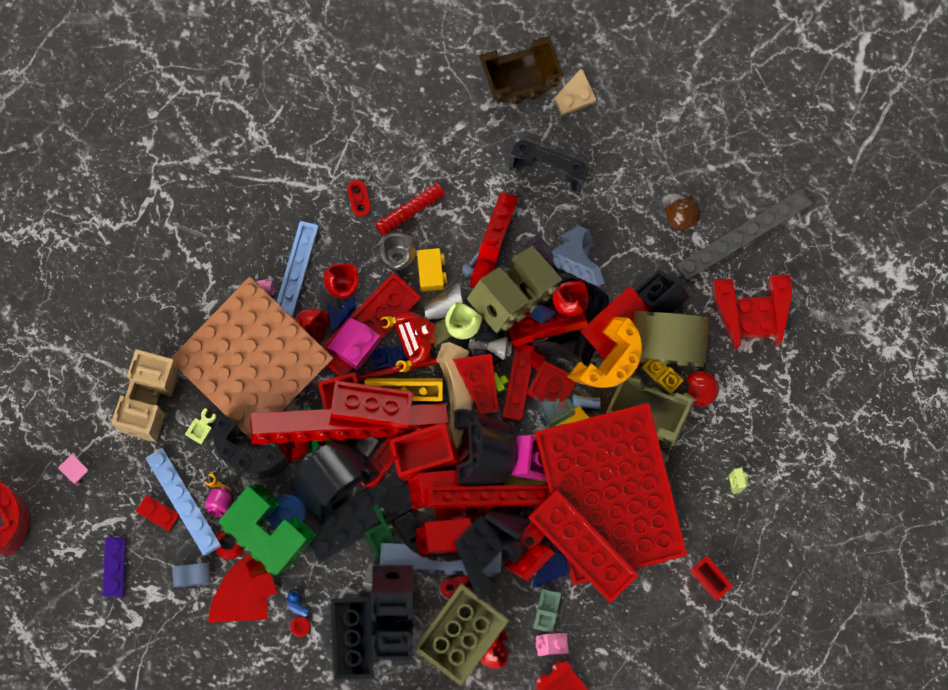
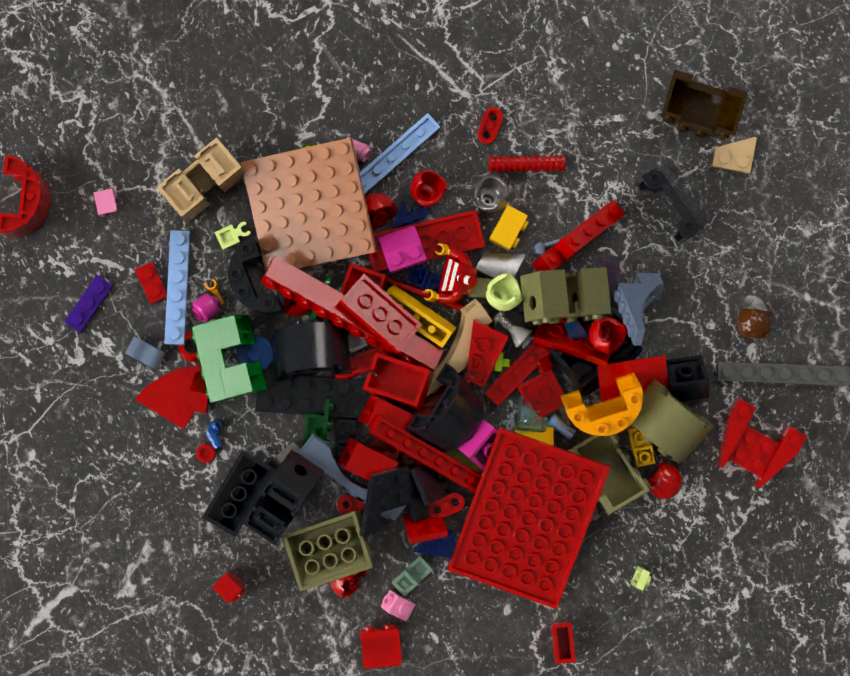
camera: 30 degrees right, 10 degrees up
(583, 546) = (475, 545): red plate -> none

